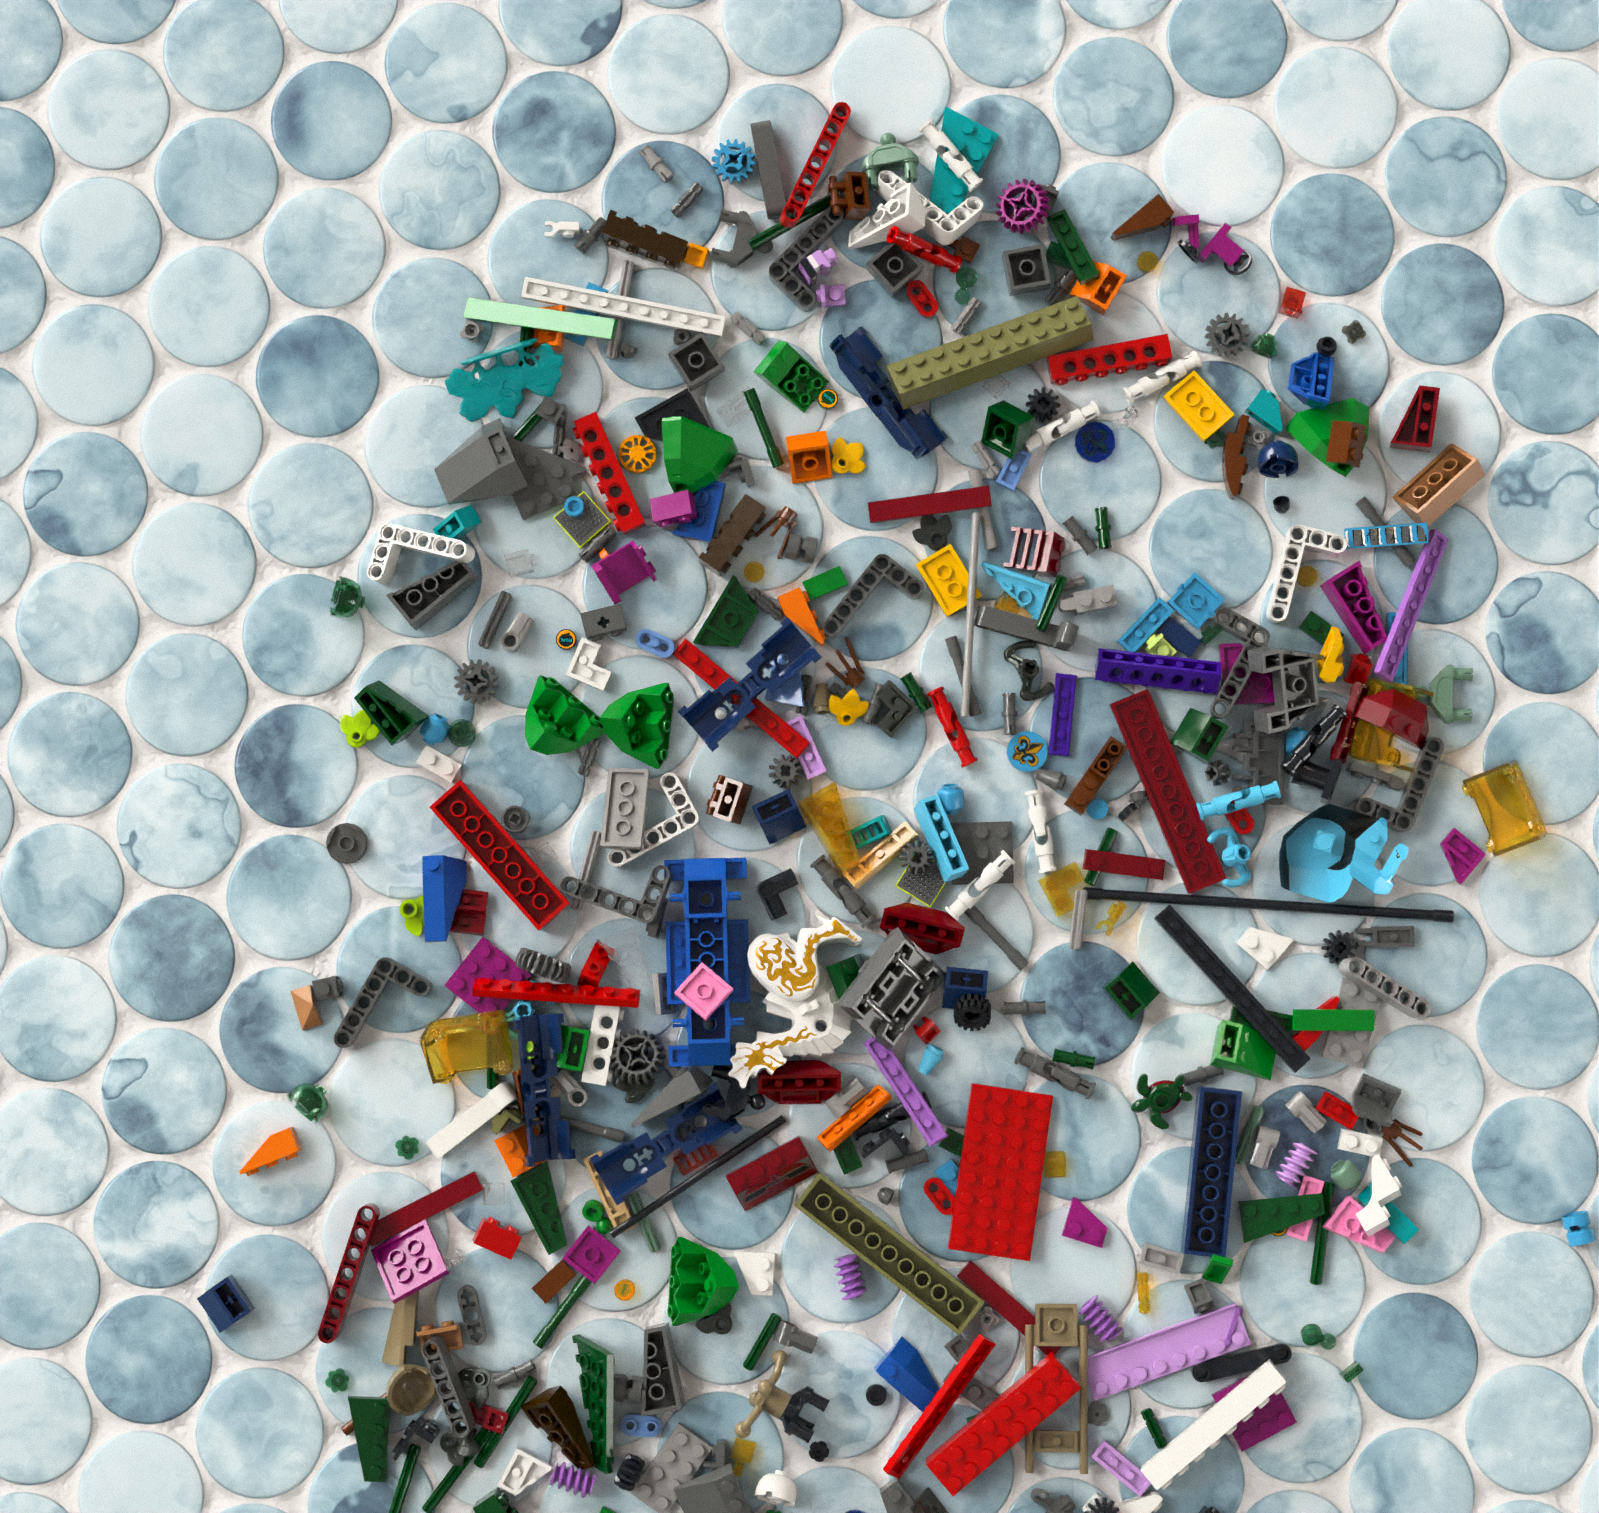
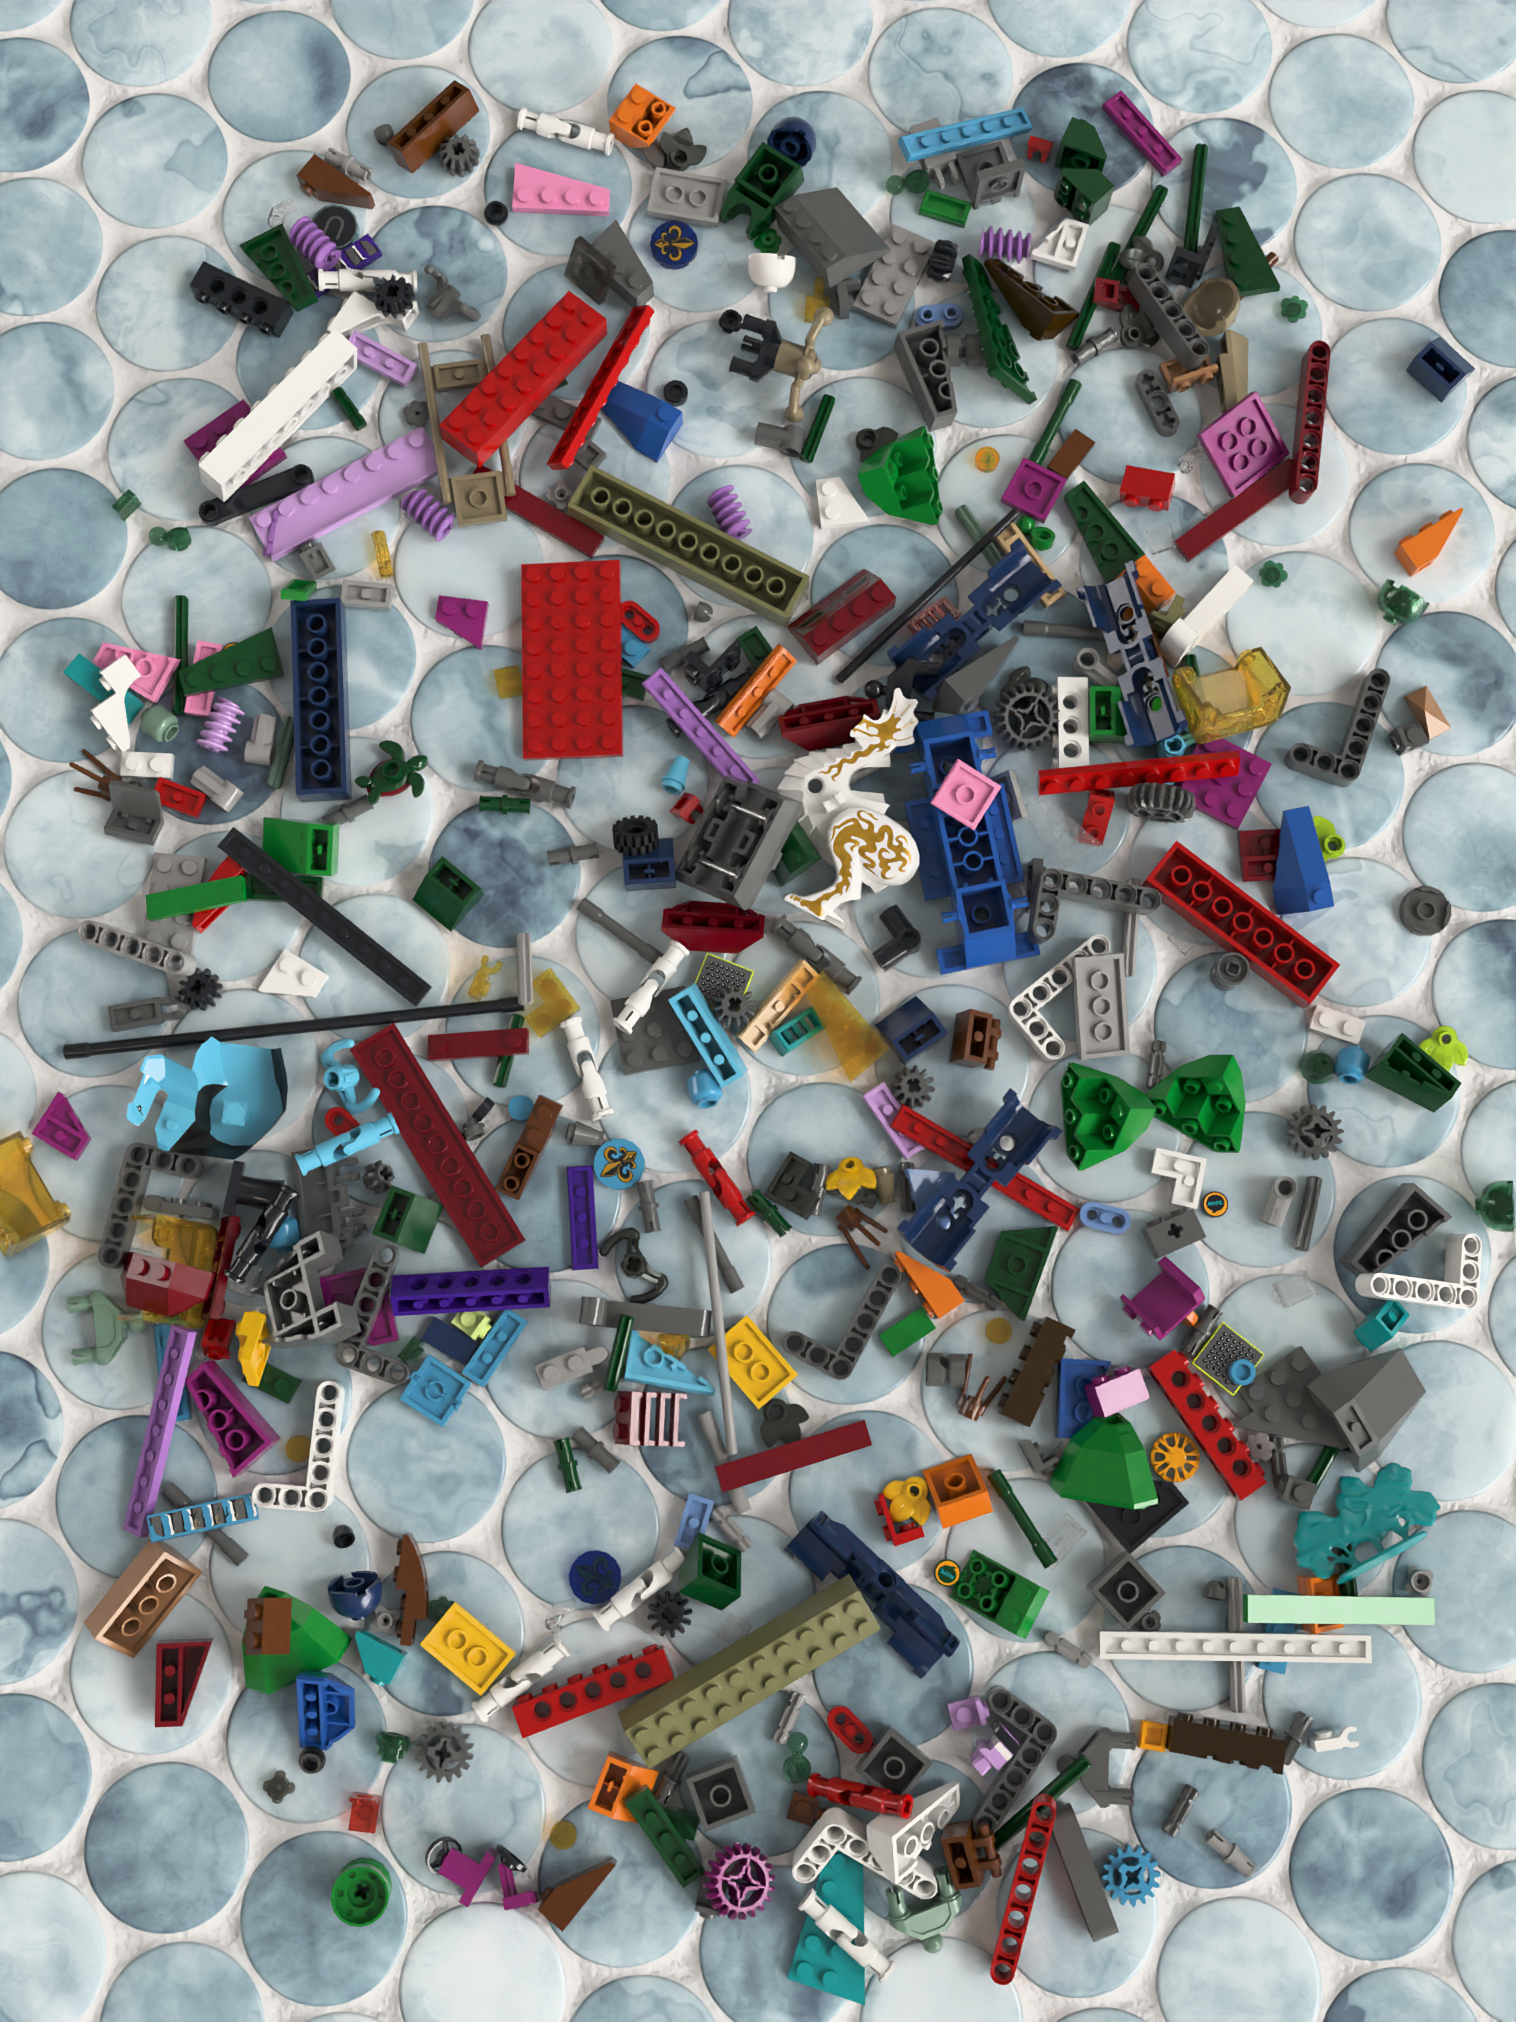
camera: 170 degrees right, 5 degrees down
(852, 432) = (907, 1533): none -> red bracket
(1306, 236) = (354, 1906): none -> green wheel

